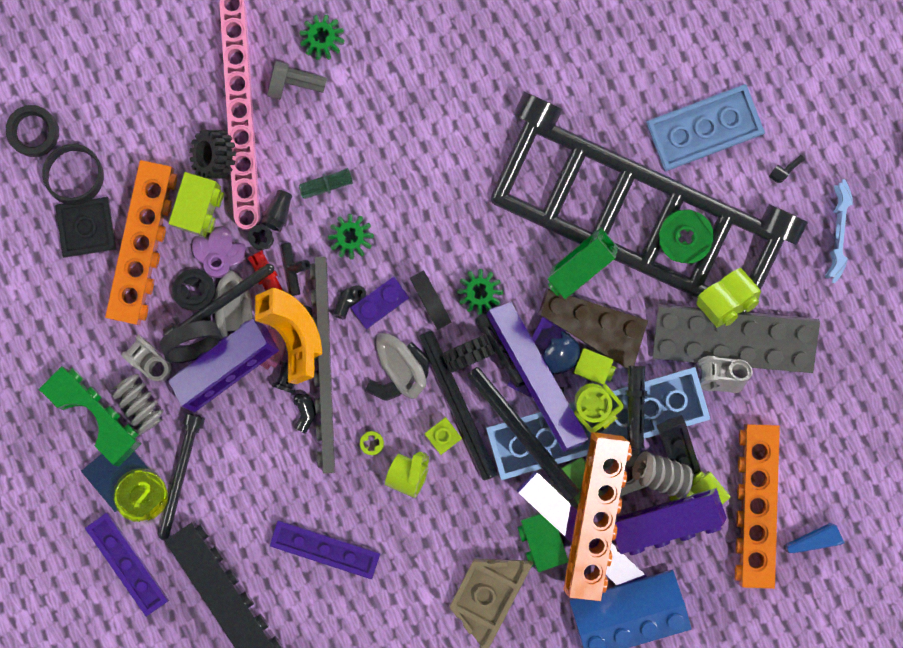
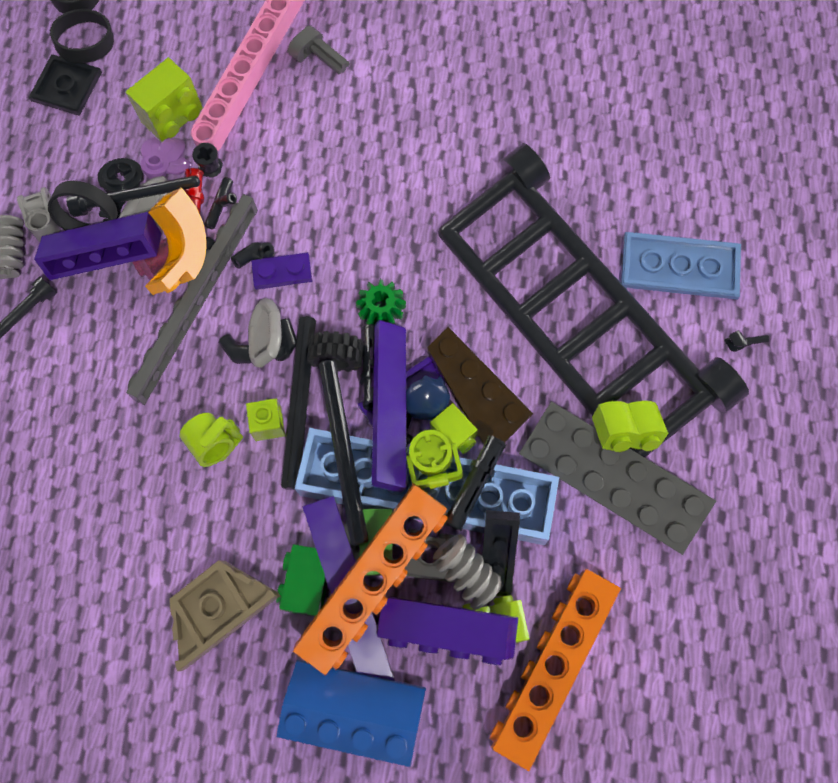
camera: 30 degrees right, 15 degrees down
(147, 175) = (91, 120): orange brick -> none
(212, 154) = (209, 68): black tyre -> none
(277, 212) = (235, 148): black cone -> none
(282, 380) = (149, 299): black bush -> none
(307, 411) = (152, 326): black arm -> none
(324, 549) = (85, 473): dark purple plate -> none
(325, 183) = (295, 145): clear green axle -> none
(330, 42) = (364, 27): green gear -> none
(359, 234) = (300, 198): green gear -> none
(378, 448) = (197, 402): lime bush -> none
(430, 300) = (326, 282): black tyre -> none
(582, 263) = (494, 318): green window -> none
(701, 239) = (623, 330): green plate -> none
(720, 373) = (586, 506): light grey piece -> none
(820, 538) = (610, 742): blue slope -> none
(838, 259) = (764, 447): light blue piece -> none

